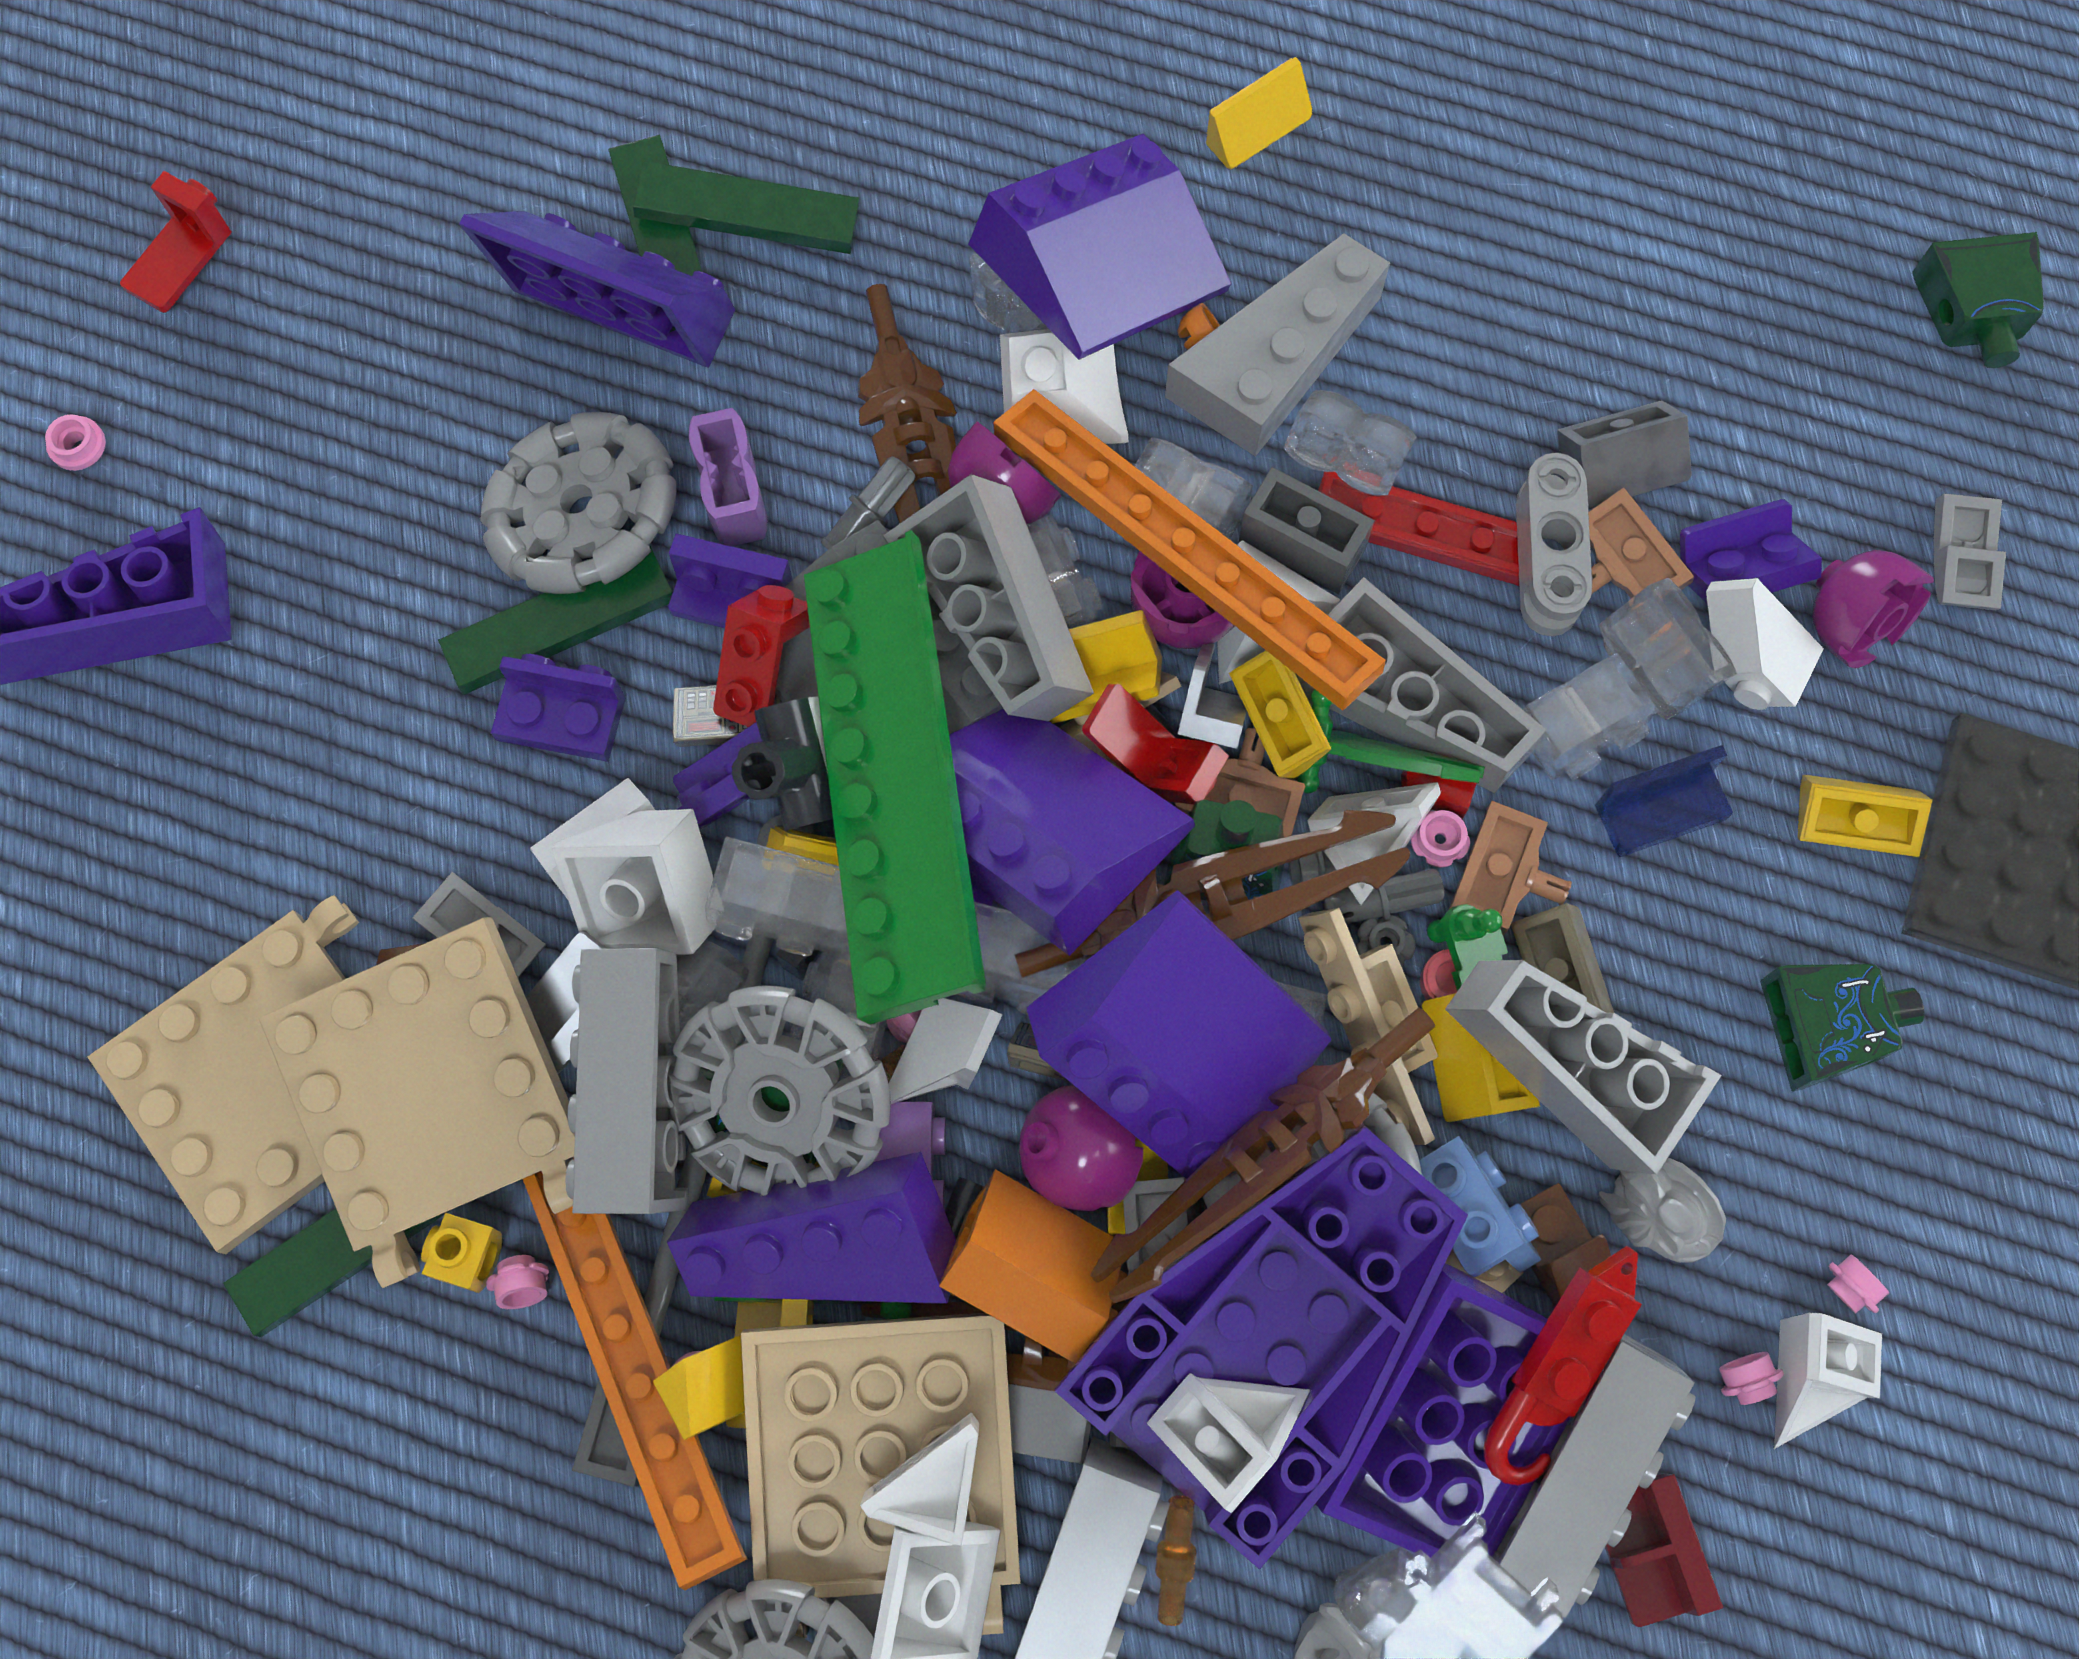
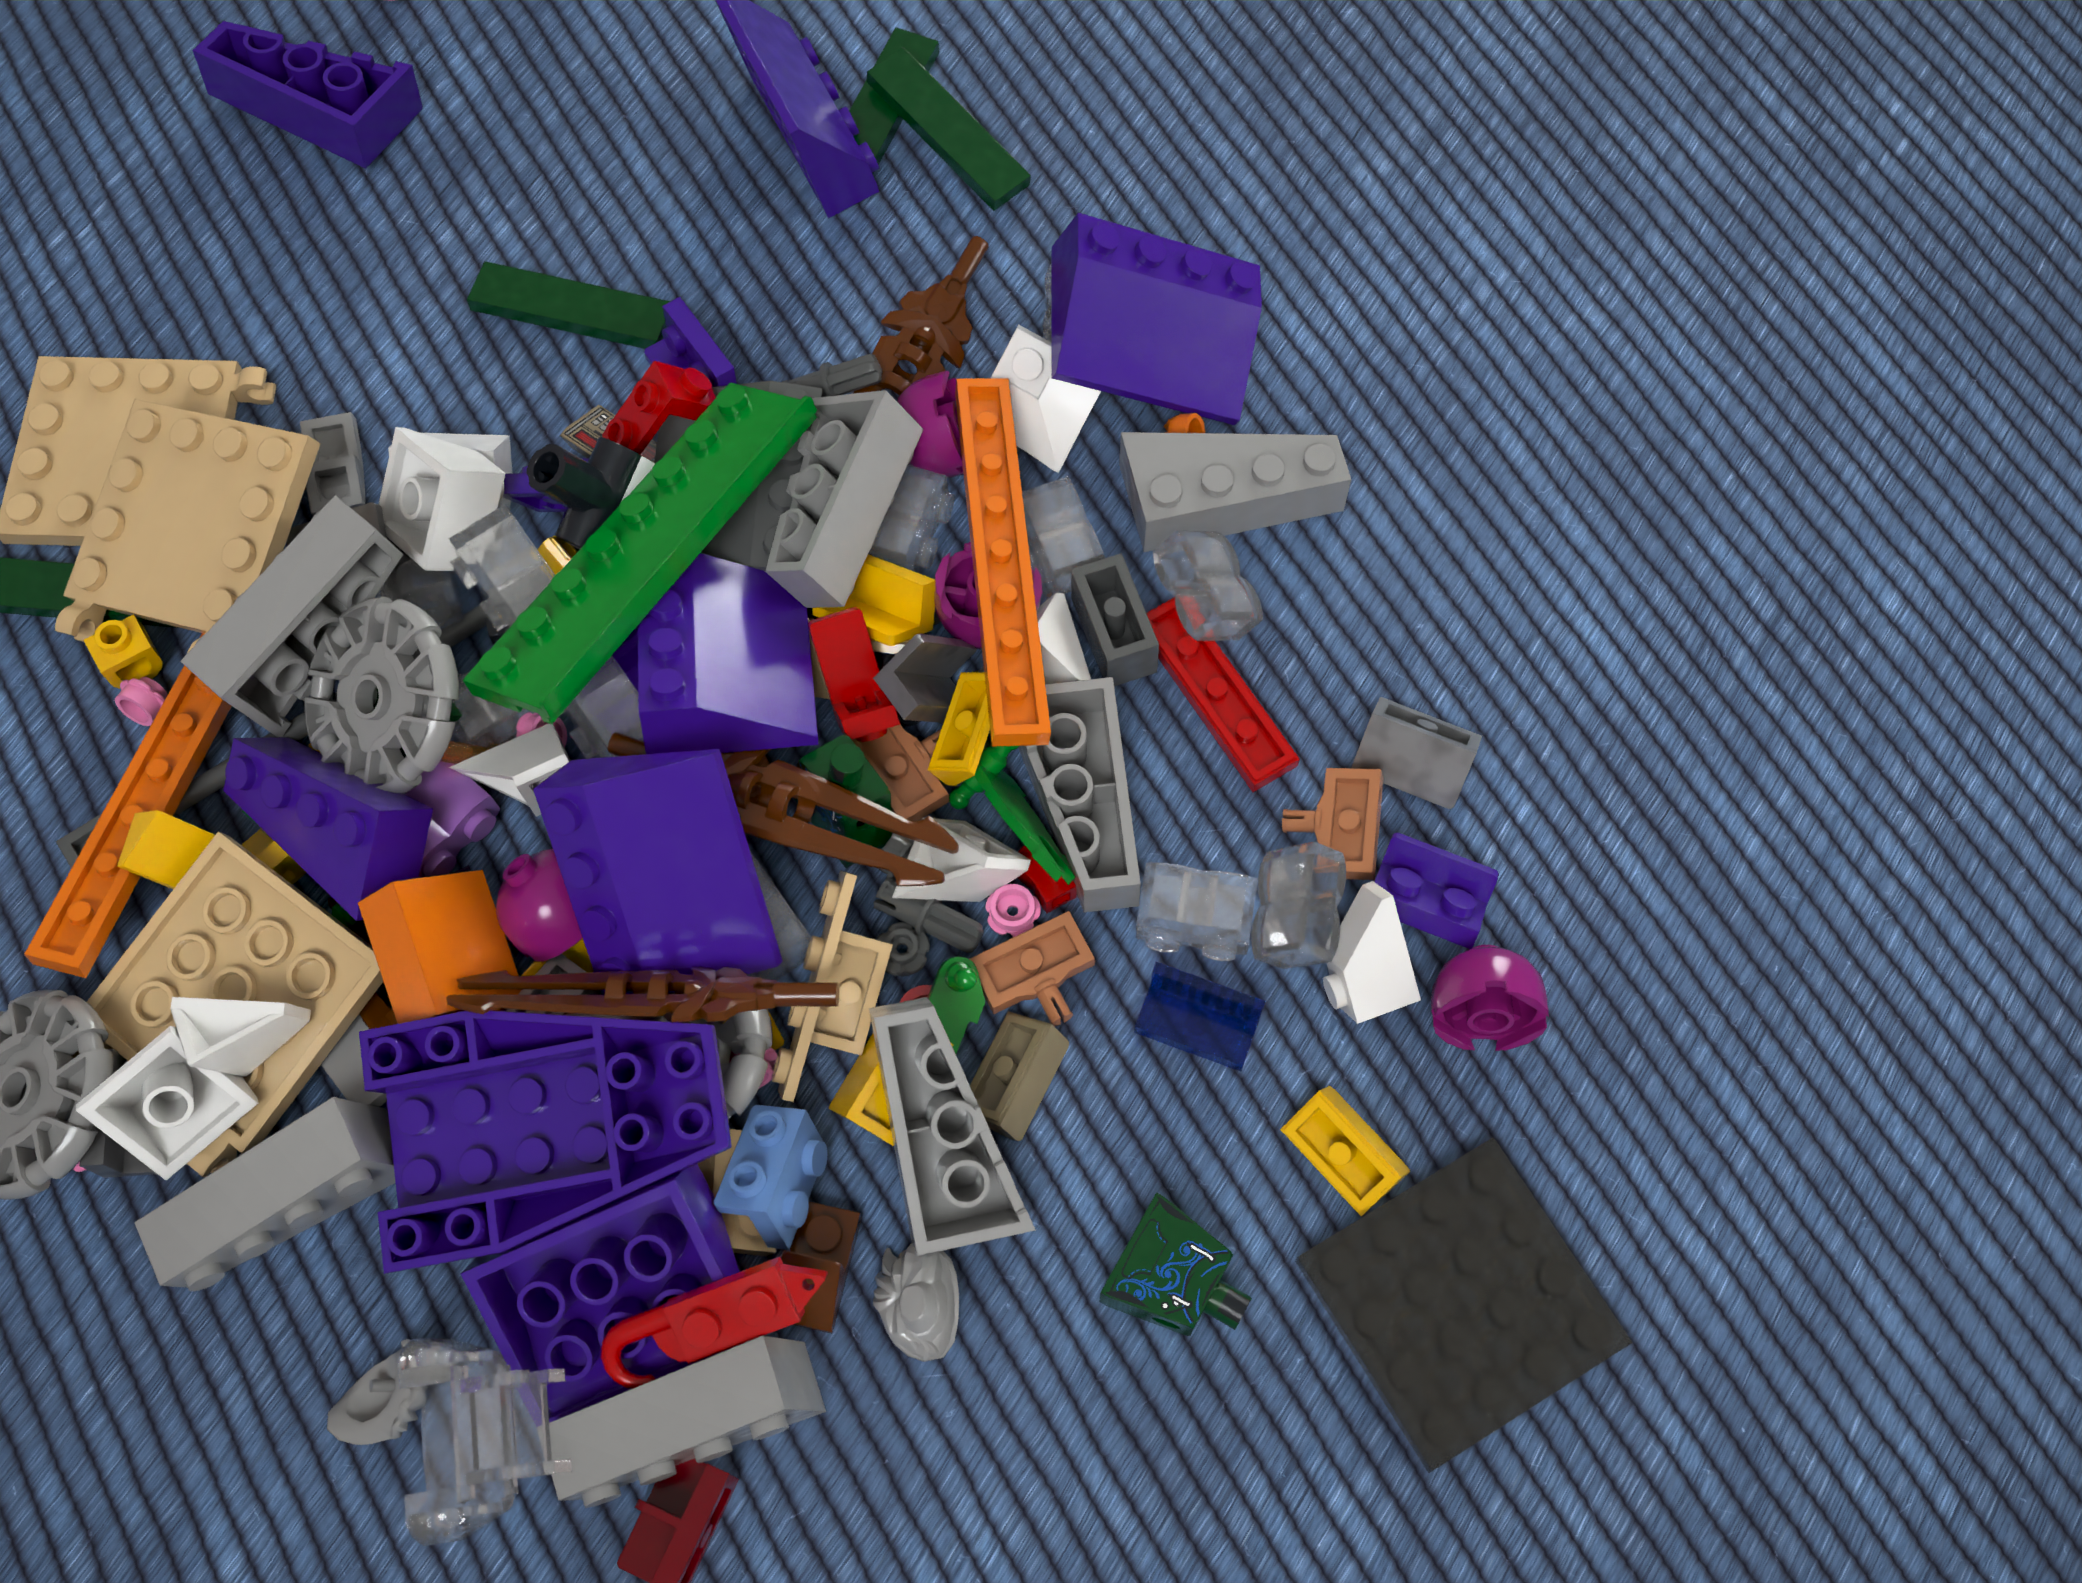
camera: 40 degrees right, 5 degrees down
(557, 482) = (653, 236): light grey plate -> none
(558, 707) = (516, 362): dark purple bracket -> none
(728, 477) = (757, 291): medium lavender brick -> none
(1175, 1560) = (352, 1229): clear orange bar -> none
(1227, 1431) = (444, 1157): white slope -> none
(1259, 114) = (1371, 317): yellow slope -> none
(1552, 581) = (1310, 741): light grey piece -> none
(1750, 1378) = (861, 1467): bright pink plate -> none
(1825, 1371) = (920, 1513): white slope -> none
(1856, 1285) = (1003, 1472): bright pink plate -> none
(1966, 553) = (1619, 1028): light grey slope -> none
(1983, 292) = (1818, 847): dark green torso -> none

